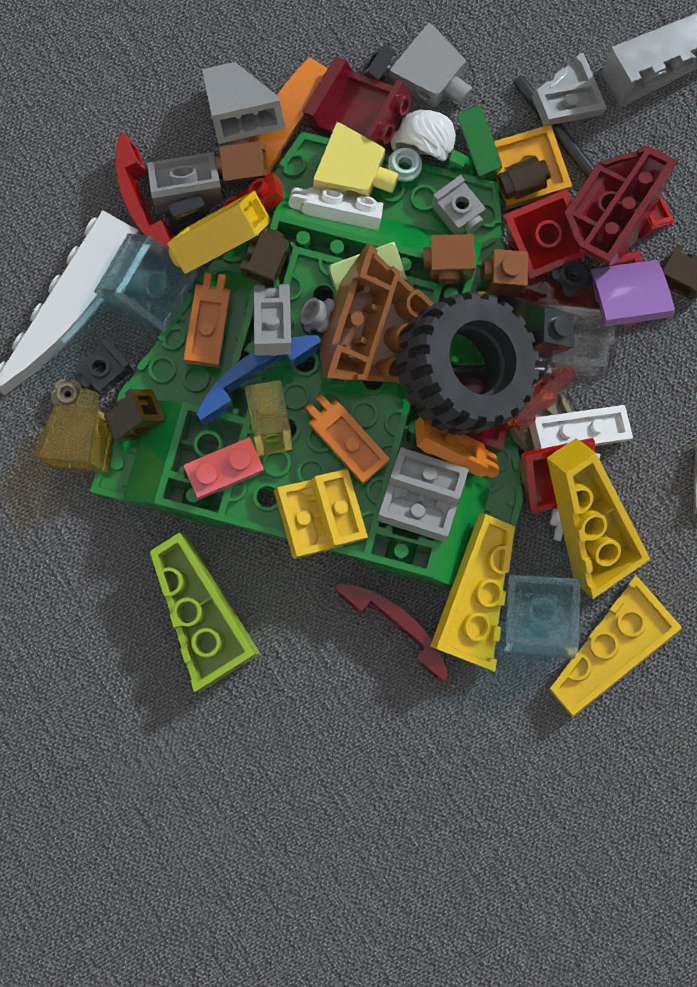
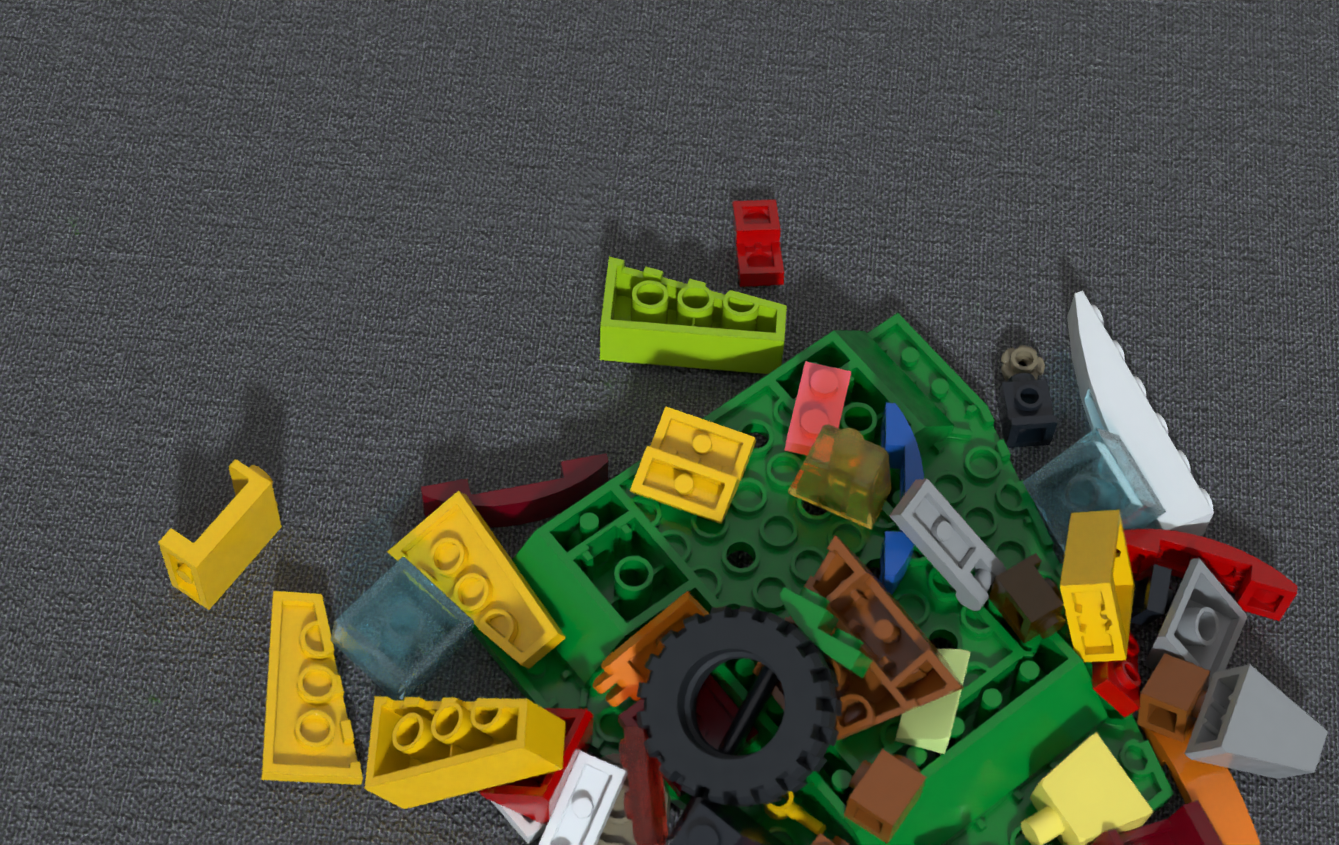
camera: 130 degrees right, 20 degrees down
(76, 436) = (965, 333): clear yellow torso -> none
(95, 621) = (757, 243): none -> red slope
(134, 415) = (946, 382): dark brown brick -> none
(207, 322) = (1003, 524): orange hinge -> none
(316, 314) = (923, 607): light grey plate -> none
(337, 207) = (1041, 746): white hinge -> none
(346, 439) = (756, 541): orange hinge -> none
(389, 355) = (817, 624): none -> green slope
(423, 494) = (630, 577): light grey slope -> none
(601, 767) = (230, 542): none -> yellow panel

